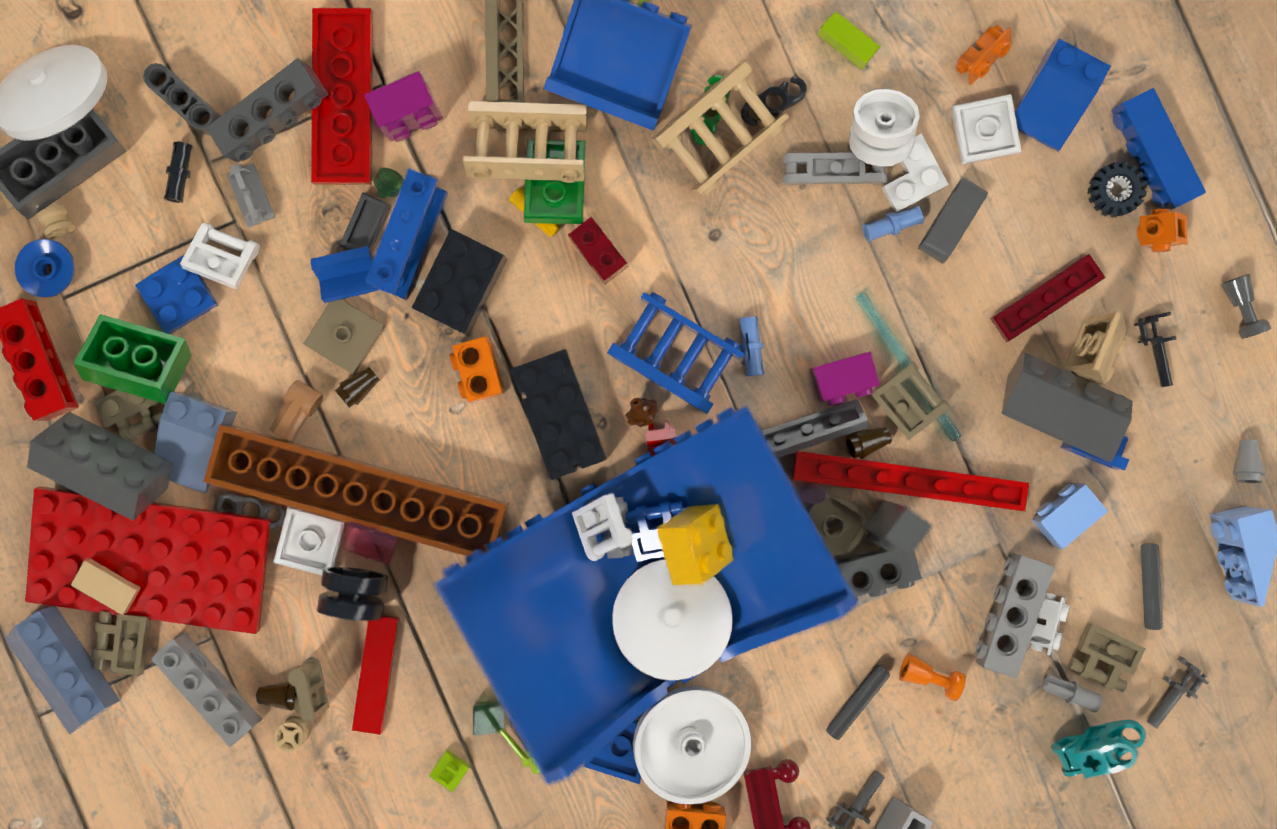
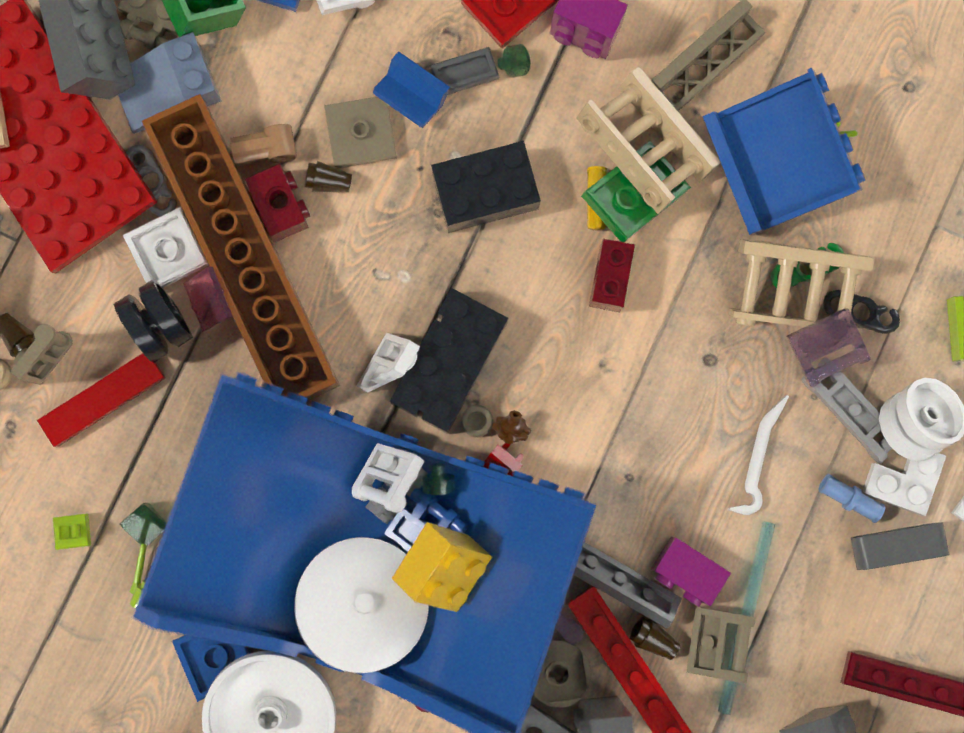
camera: 50 degrees right, 5 degrees down
(326, 435) = (264, 189): none -> dark red brick
(407, 234) = (487, 110): blue fence -> none
(485, 367) = (434, 266): orange brick -> none
(523, 456) = (389, 362): none -> white wing
(616, 431) = (477, 421): none -> dark tan tile
(635, 494) = (438, 481): none -> tile
(675, 381) = (556, 401): blue fence -> none
(751, 346) = (646, 471): medium blue pin -> none
(770, 145) = (824, 338): none -> plate
(810, 263) = (757, 460): none -> white piece

